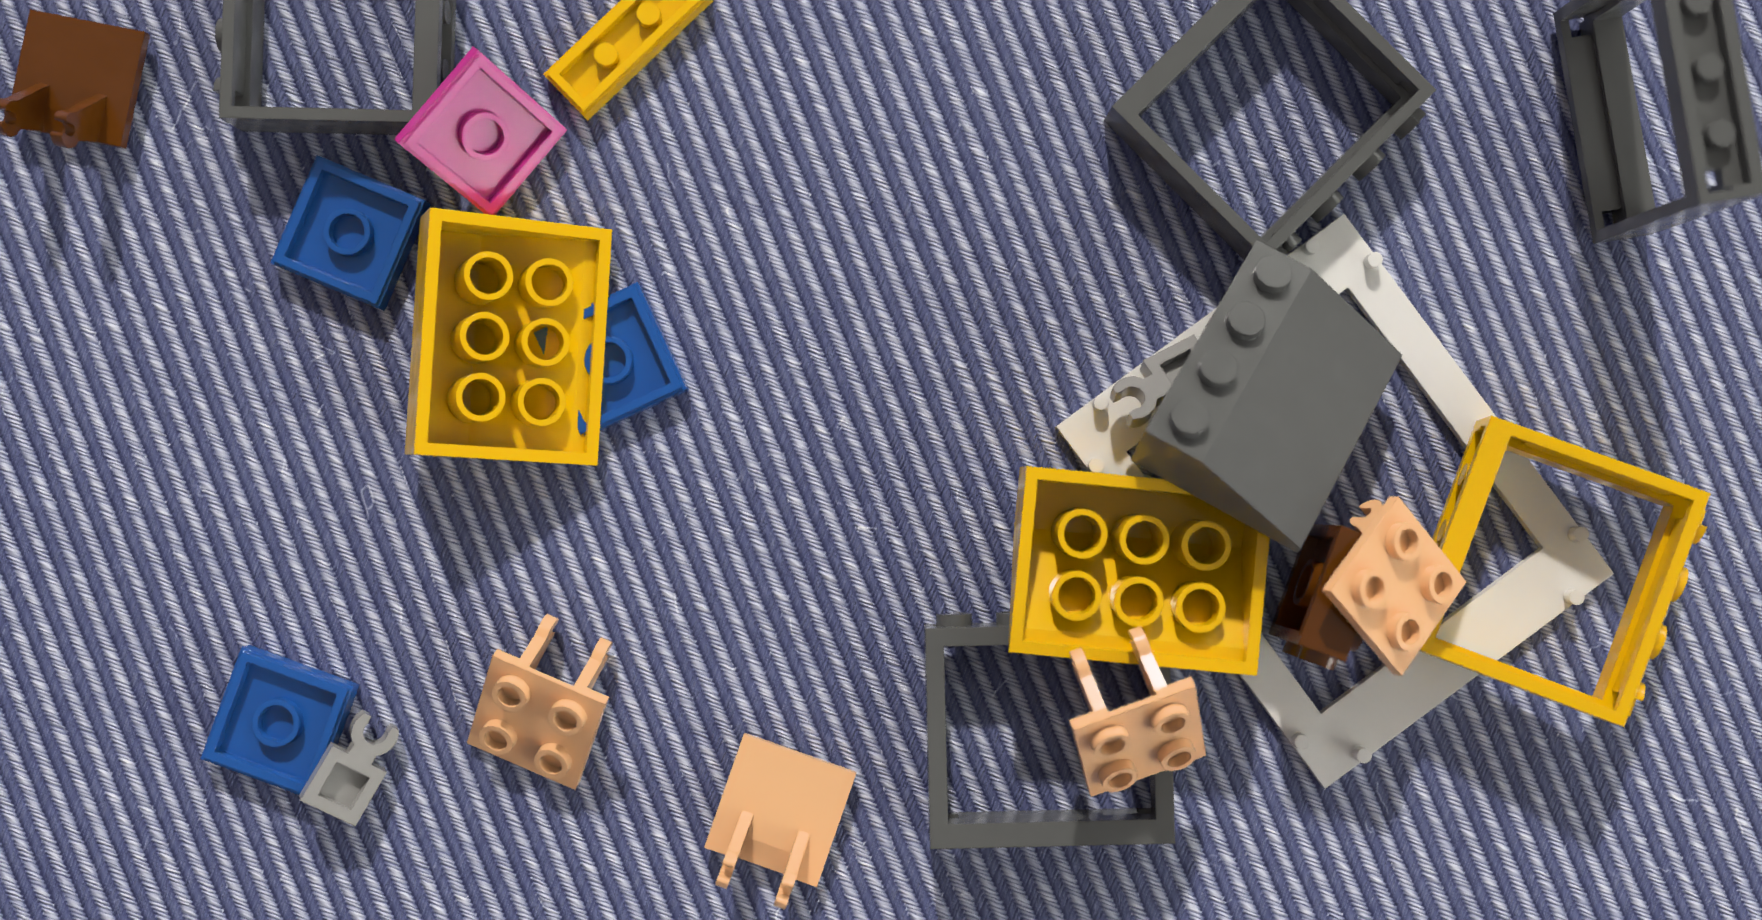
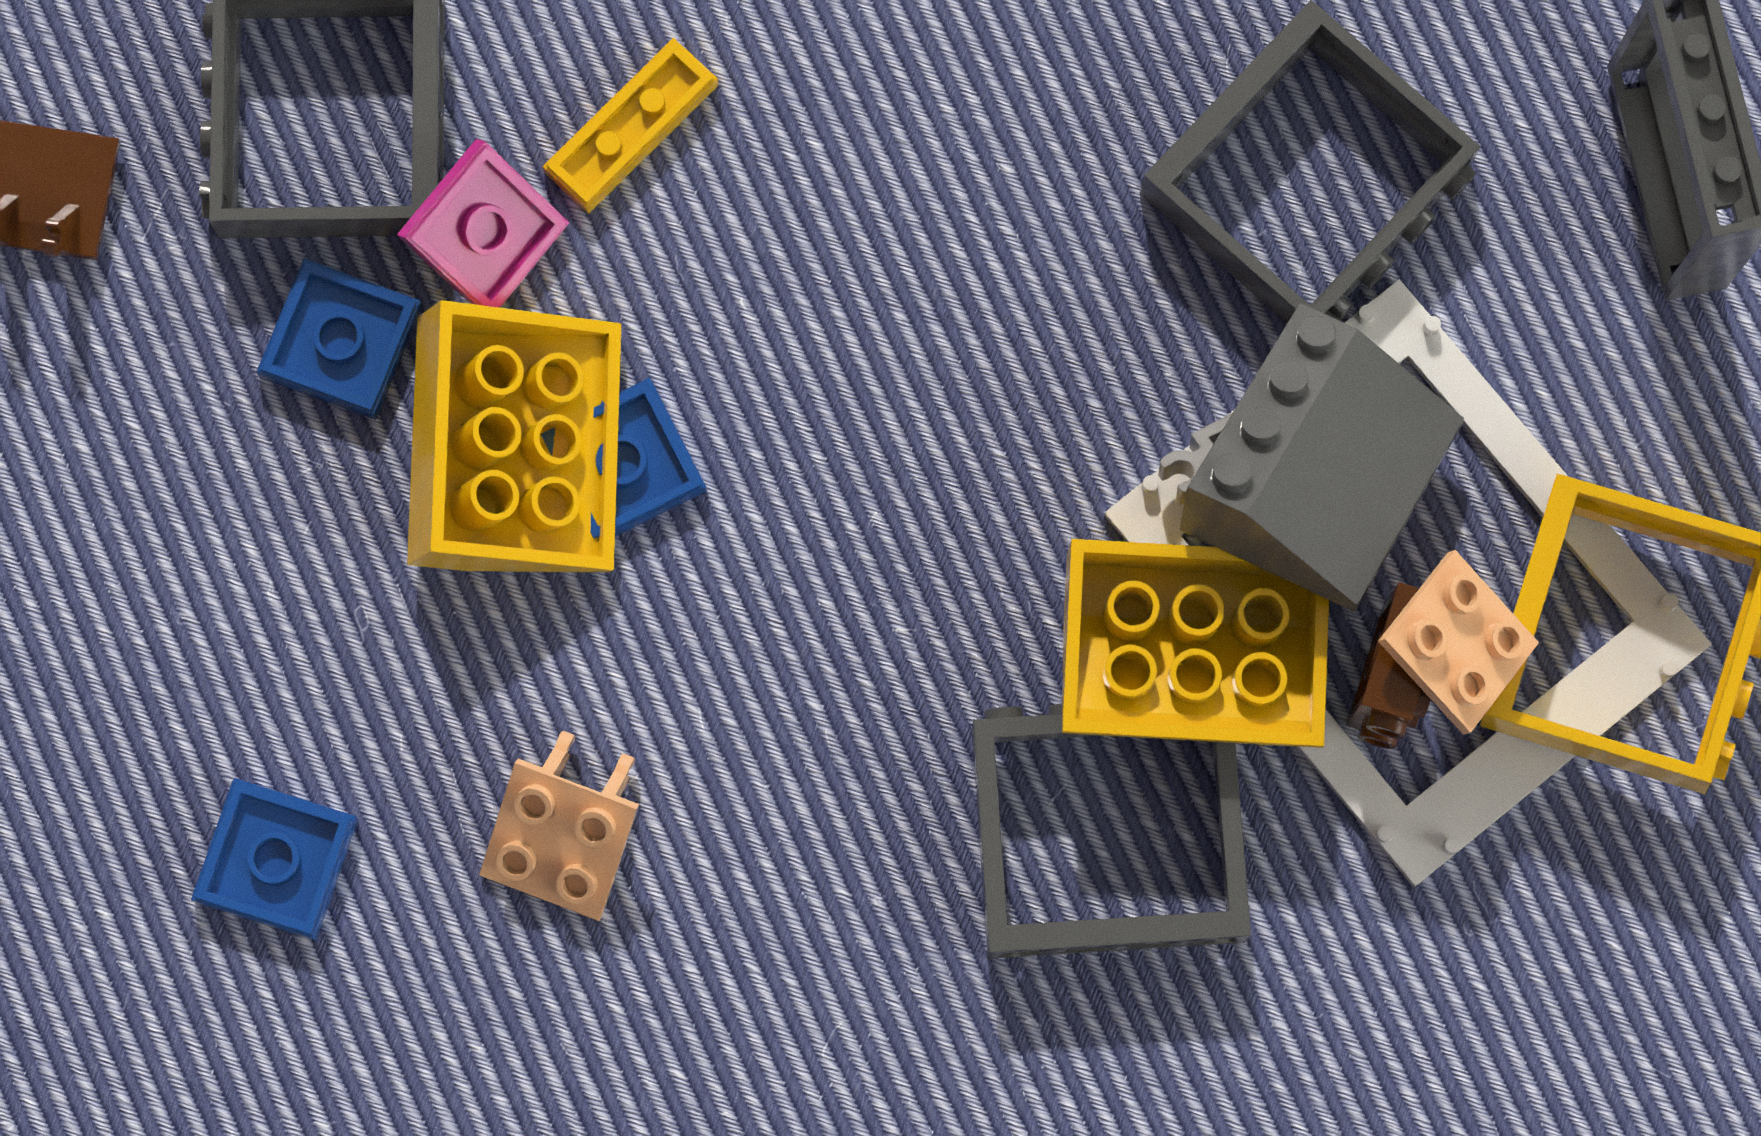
camera: 10 degrees left, 10 degrees down
(349, 777) = (351, 910): light grey plate -> none
(779, 813) = (823, 932): light nougat plate -> none
(1138, 737) = (1201, 808): light nougat plate -> none

